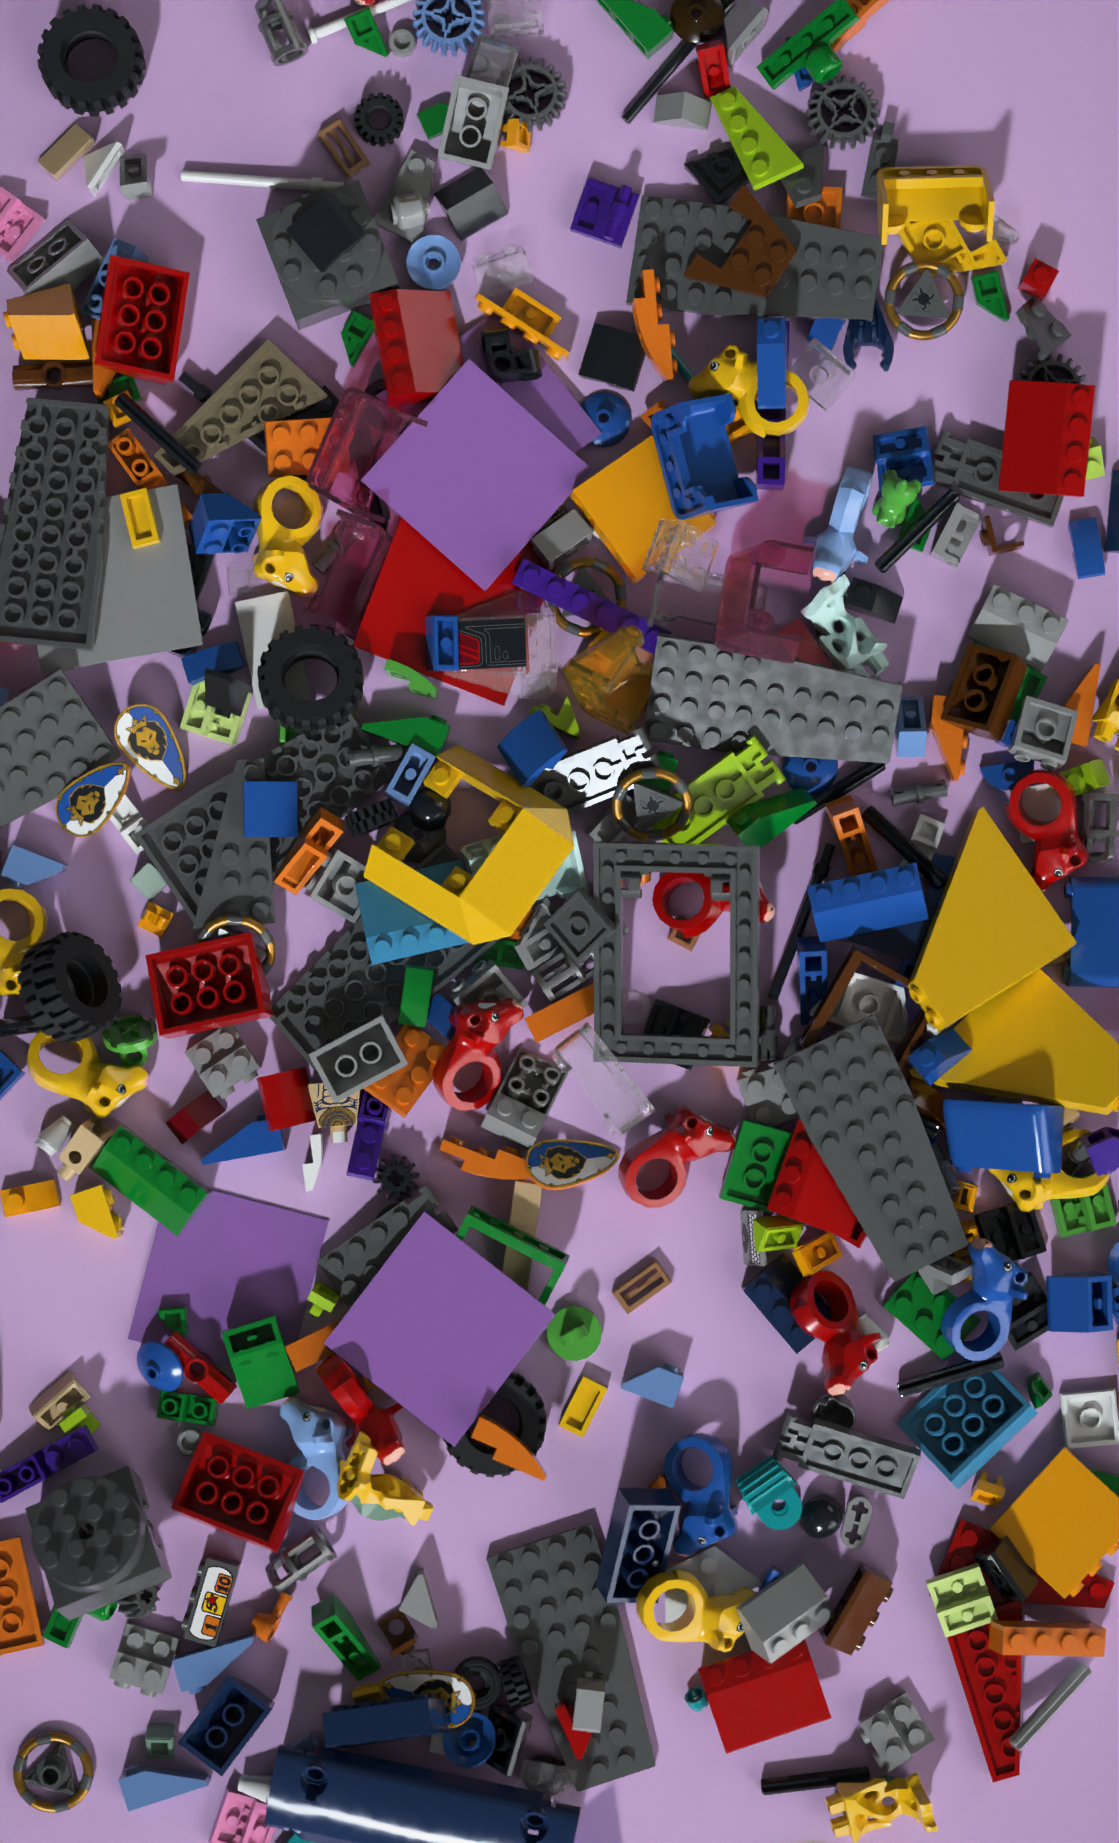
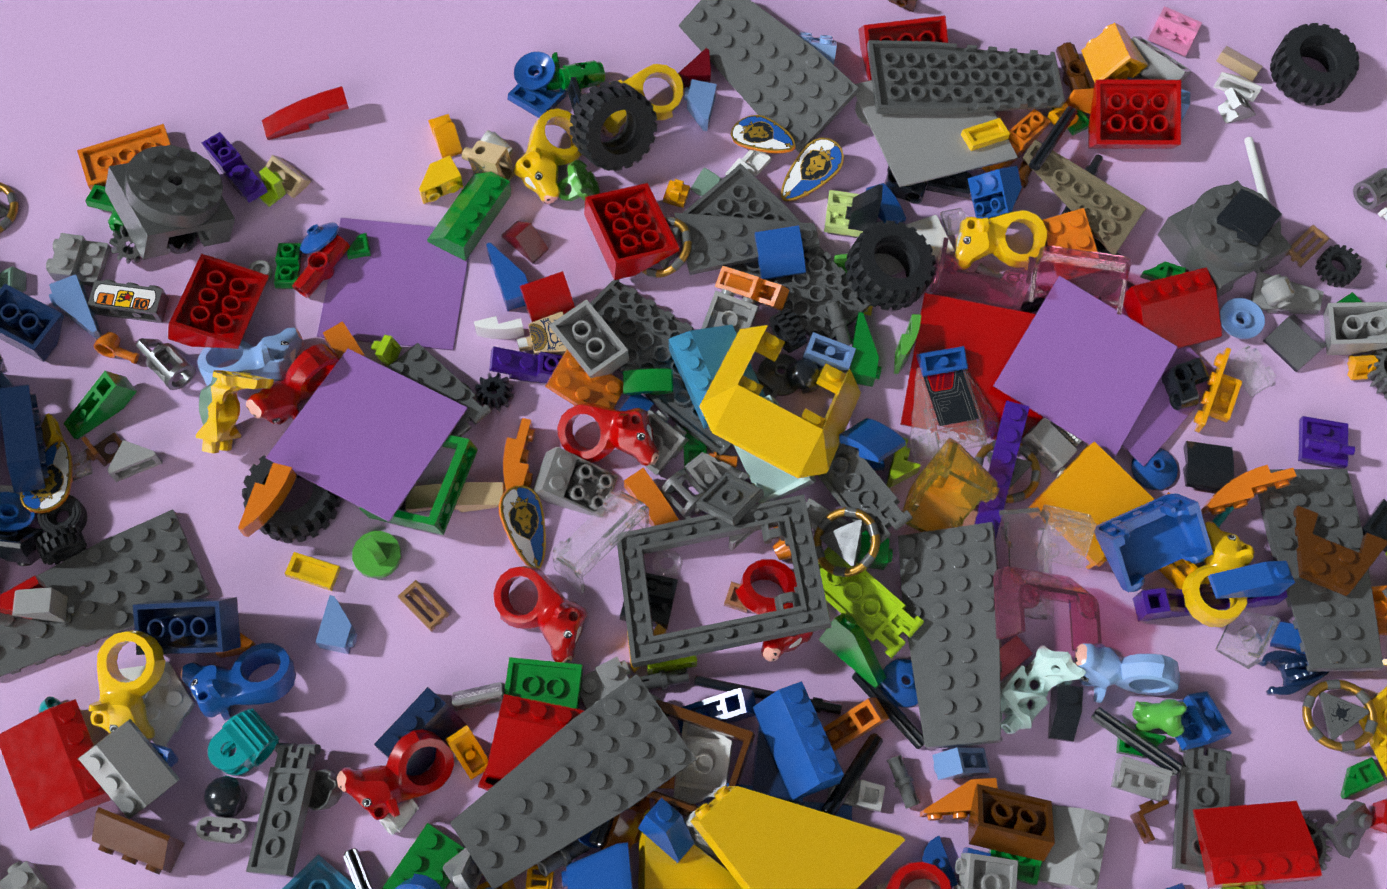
camera: 70 degrees right, 20 degrees down
(223, 1061) = (572, 254): light grey plate -> none
(260, 1361) = (328, 305): green slope -> none
(776, 1233) = (482, 710): lime slope -> none

